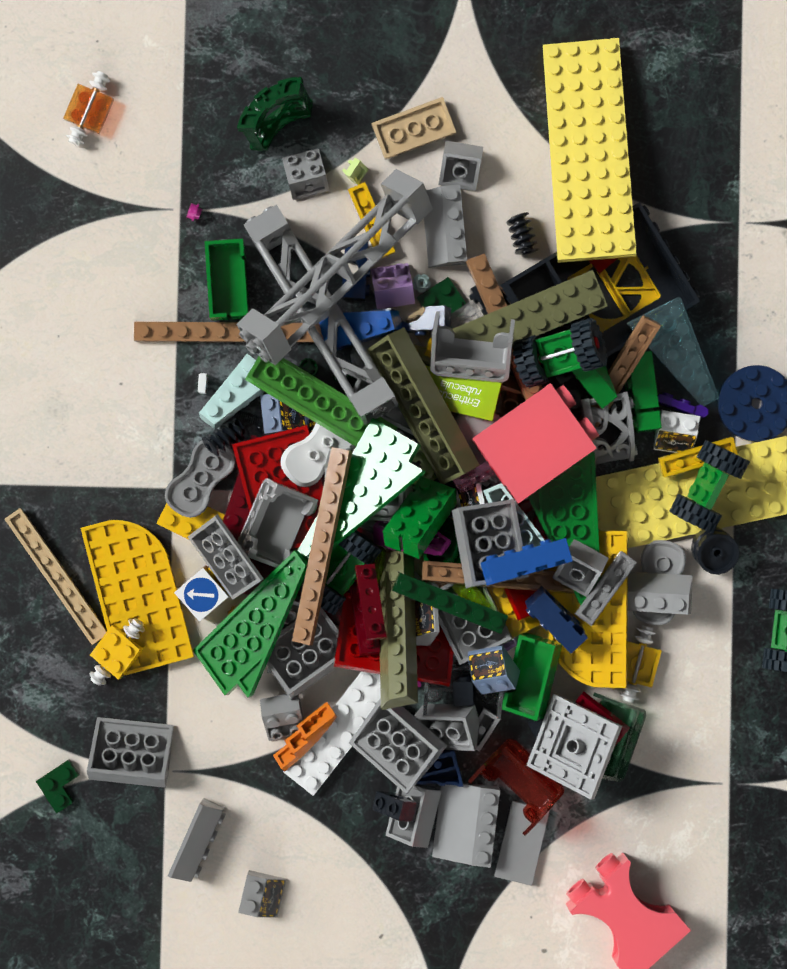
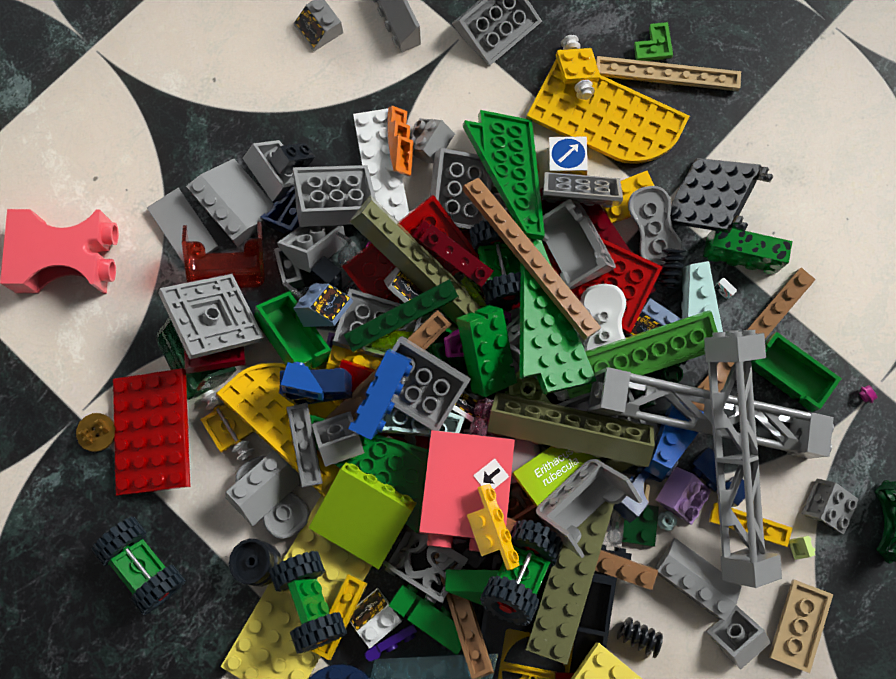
camera: 135 degrees right, 10 degrees down
(38, 602) = (658, 47): none -> bright green plate
(137, 452) = (716, 194): none -> plate
(158, 392) = (748, 250): none -> green brick
(513, 432) = (491, 474): none -> white sticker
(551, 399) = (491, 530): none -> yellow bracket
(566, 629) = (300, 381): none -> blue slope
(616, 502) = (362, 514): none -> lime panel
(693, 714) = (151, 432): none -> red plate
(719, 756) = (103, 426): none -> pearl gold plate

